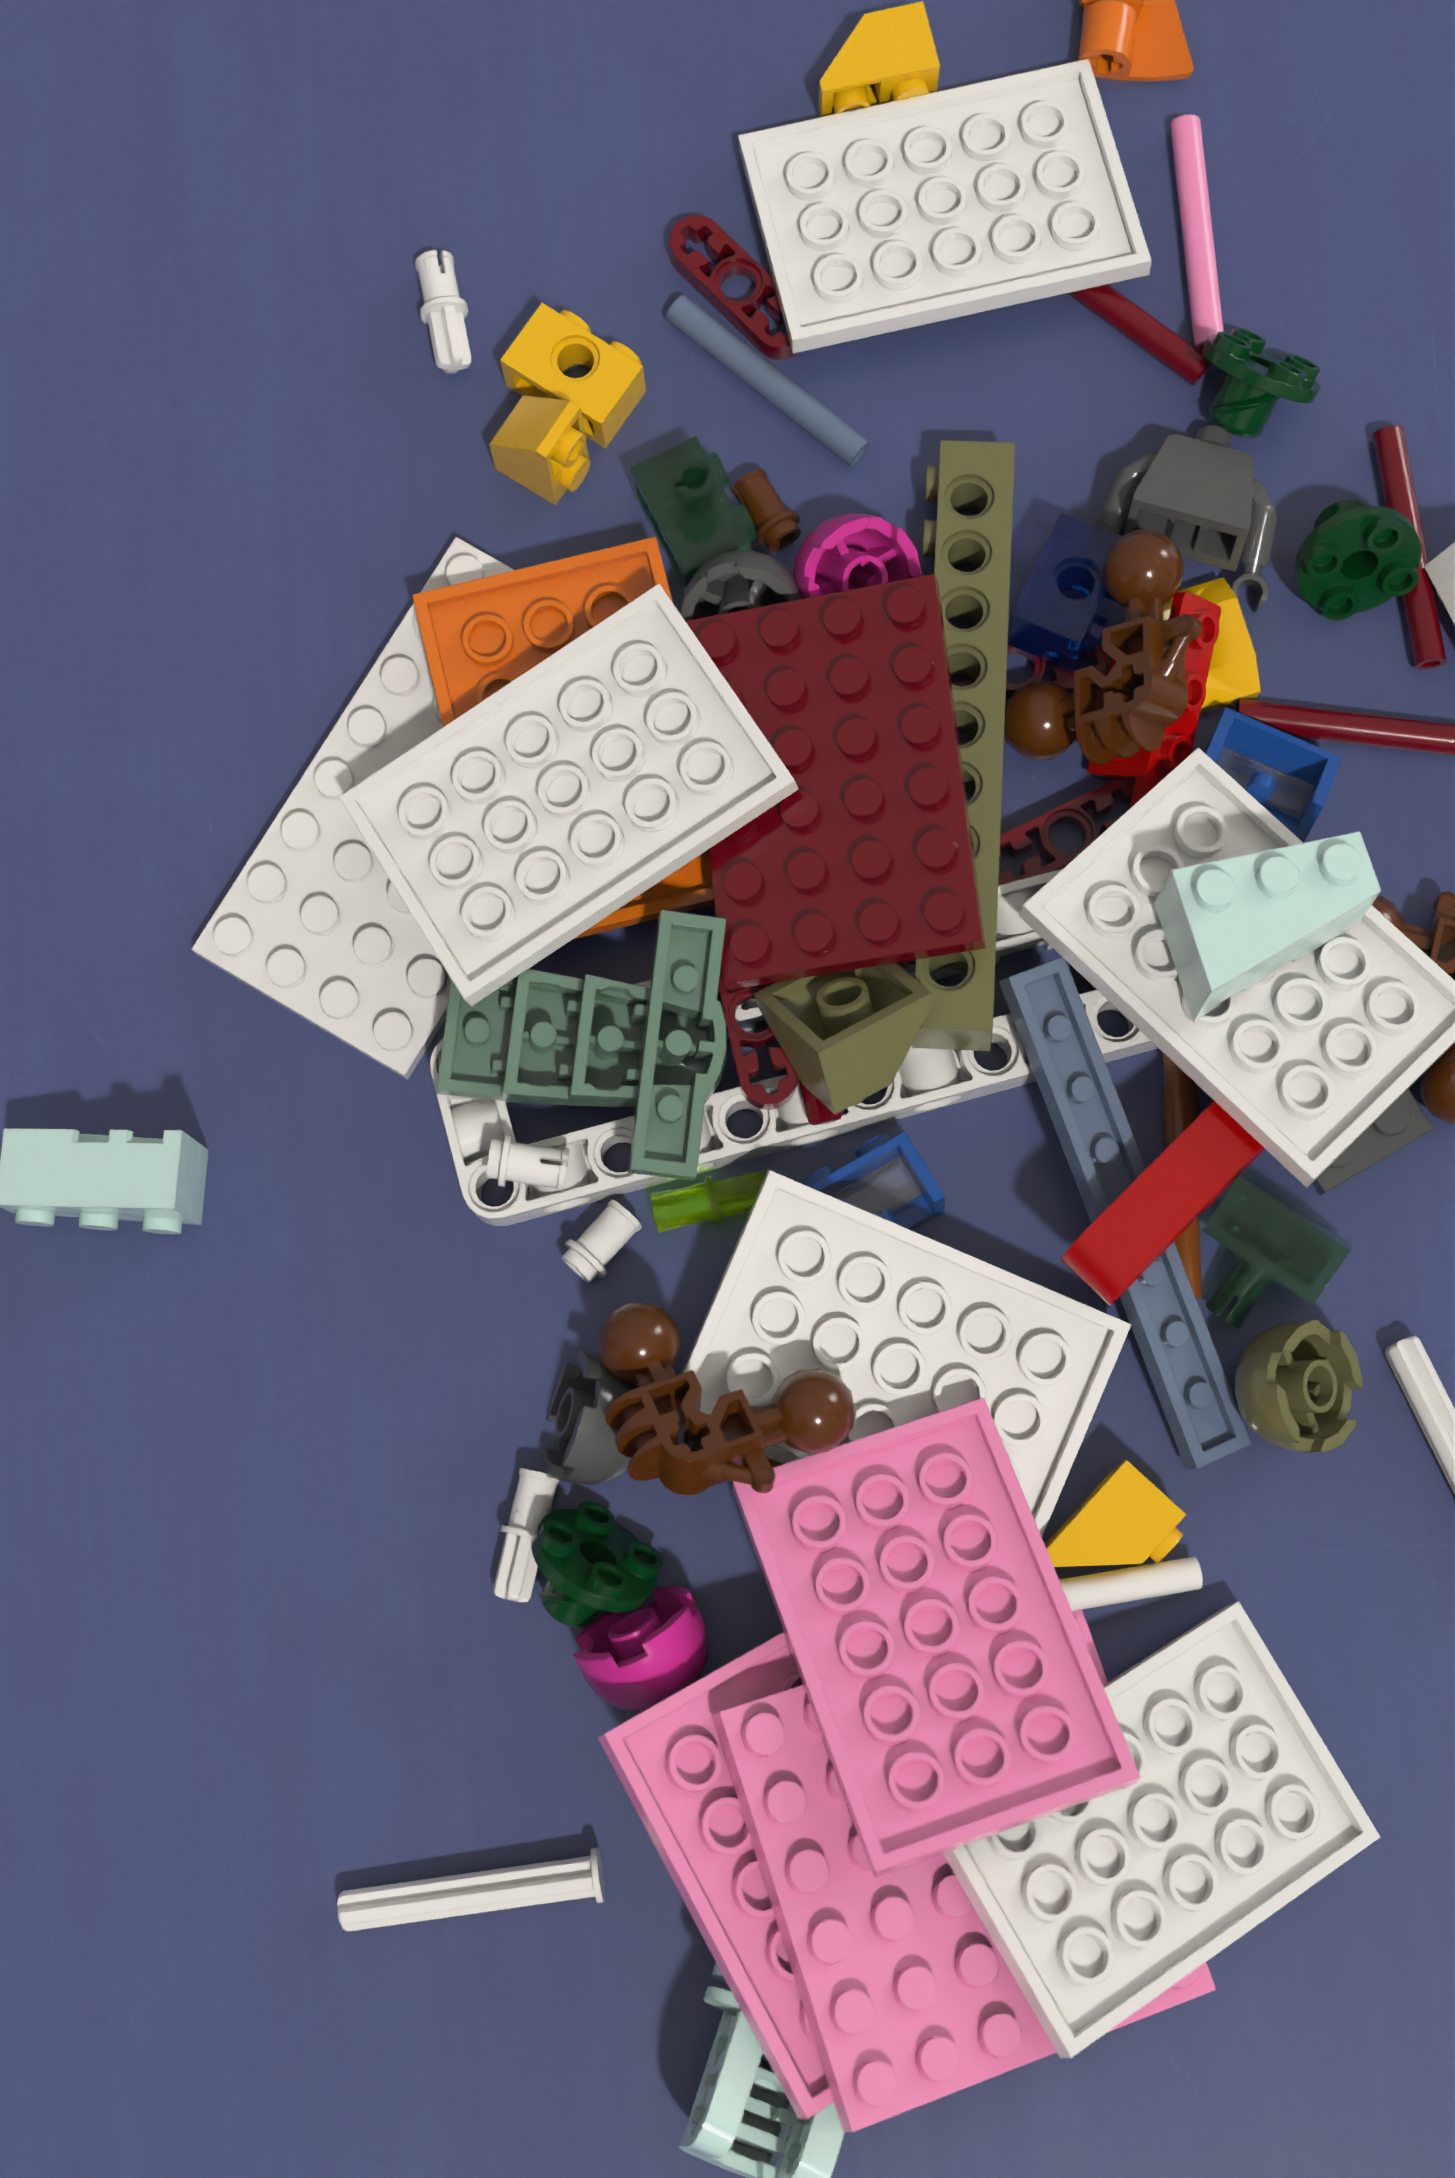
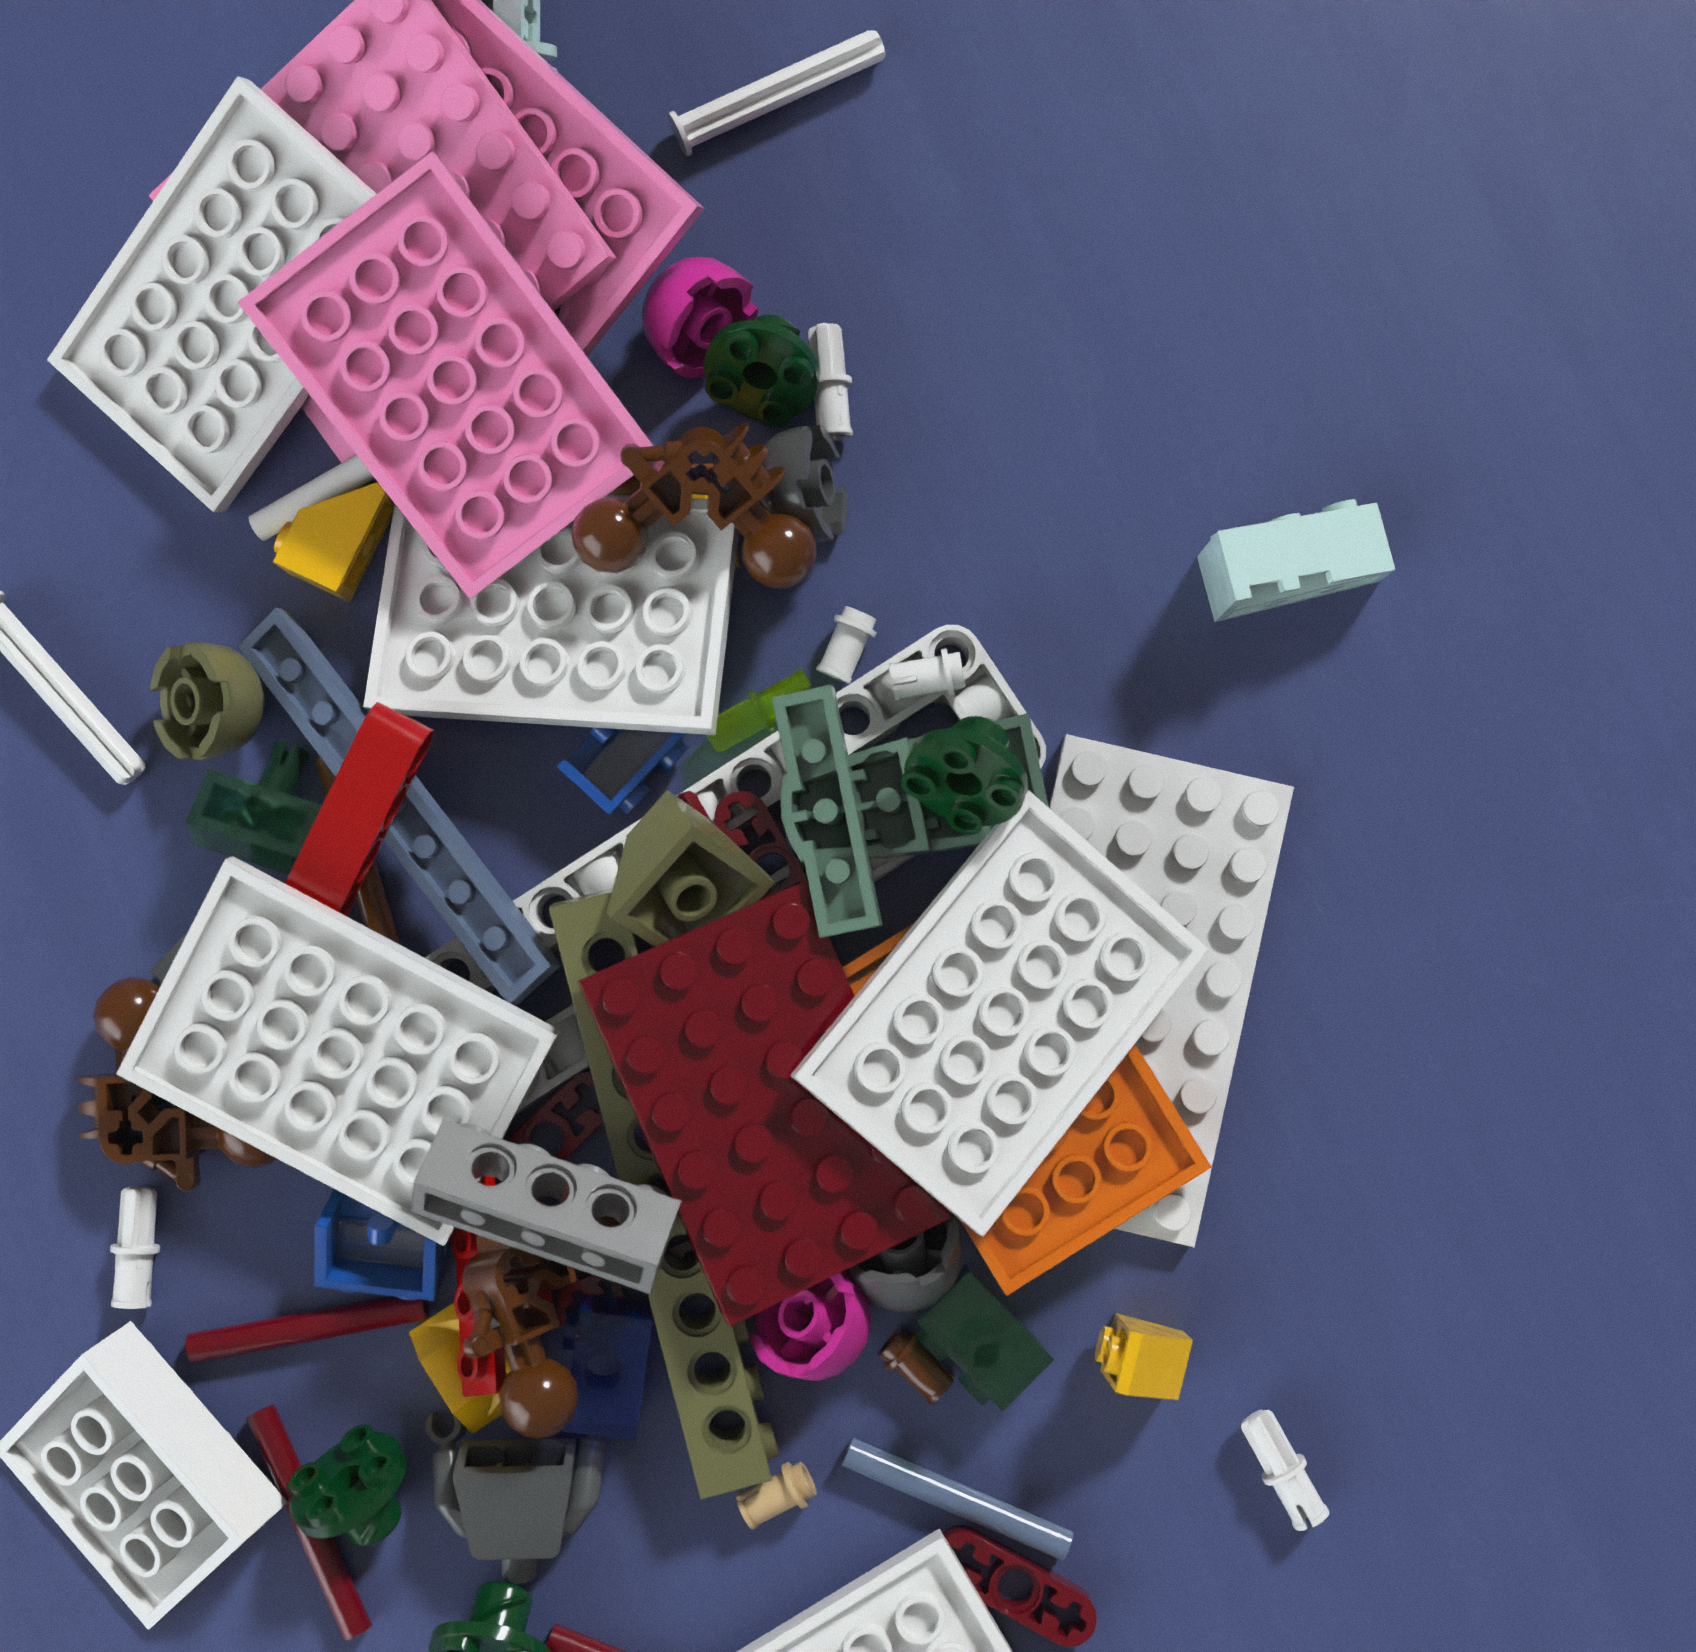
camera: 155 degrees right, 5 degrees up
(519, 1030) = (966, 774): none -> dark green plate
(560, 340) = (1176, 1450): yellow brick -> none
(923, 434) = (768, 1499): none -> tan pin
(1116, 739) = (562, 1233): none -> light grey brick
(1260, 910) = (338, 1086): light aqua wedge -> none

